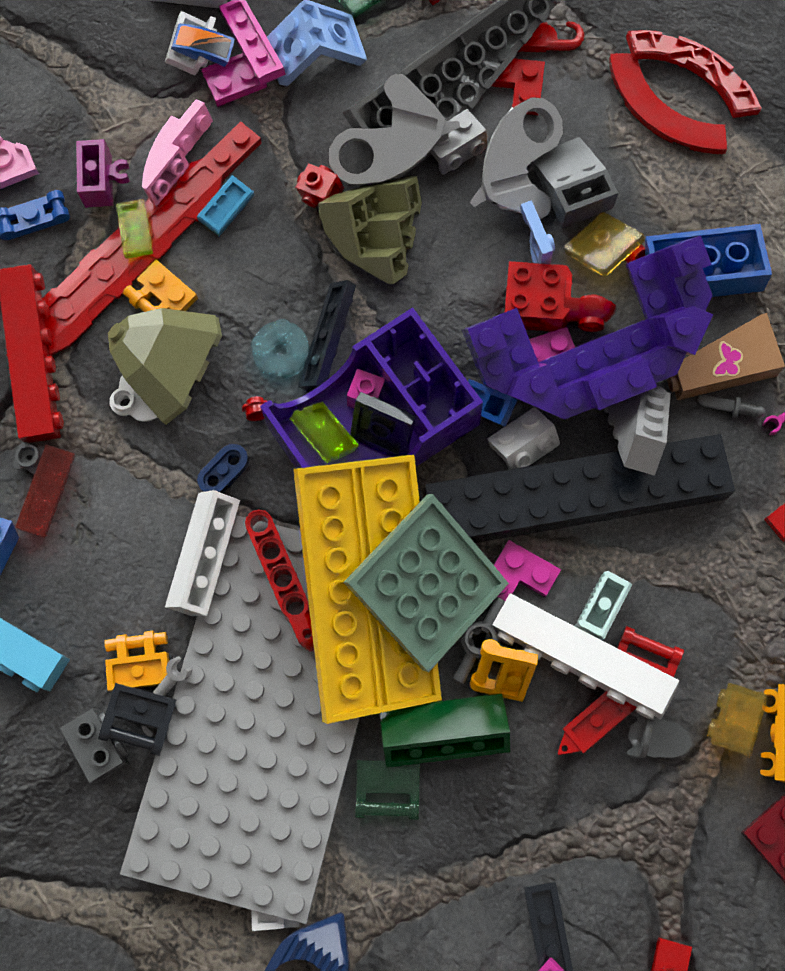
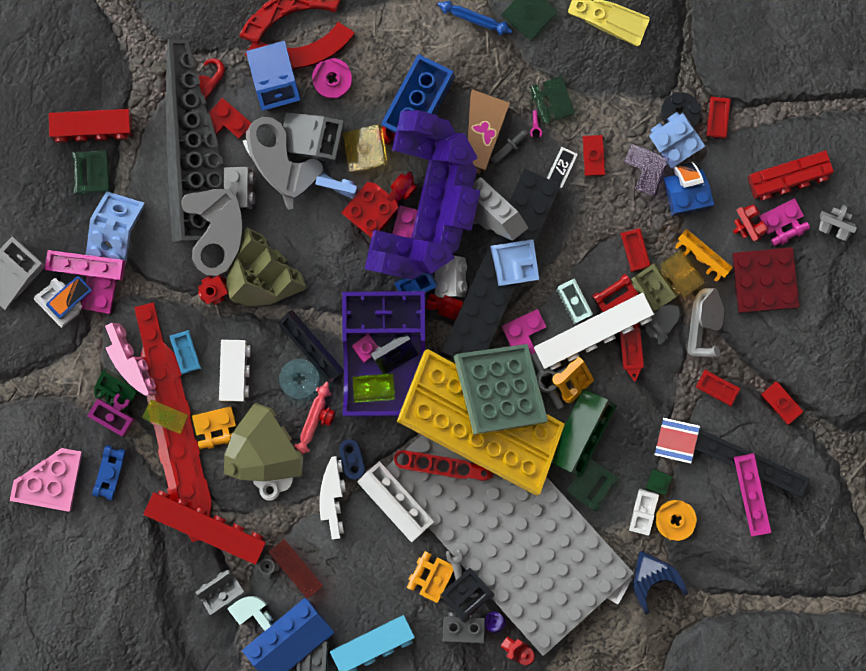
camera: 60 degrees left, 10 degrees up
(105, 836) = (518, 651): none -> red hips
(128, 781) = (494, 622): none -> dark purple tile
(135, 150) = (112, 385): none -> dark green plate
(168, 468) = (330, 489): none -> white slope
(239, 269) = (234, 371): none -> white brick
(241, 394) = (313, 418): none -> coral wheel
(397, 883) = (643, 512): none -> white slope
(432, 928) = (687, 521): none -> light orange plate
(449, 876) = (658, 482): none -> dark green plate
(487, 456) = (447, 306): none -> red plate
(520, 864) = (677, 440): none -> sticker
(599, 496) = (515, 262): none -> light blue plate
(608, 94) = (273, 75): none -> slope
(626, 871) = (717, 388): none -> red plate
(650, 174) = (343, 77): none -> dark pink plate
(695, 697) = (654, 286): none -> olive bracket
(714, 791) = (706, 313): none -> light grey piece
(722, 643) = (635, 250): none -> red tile
(756, 485) = (562, 166): none -> sticker

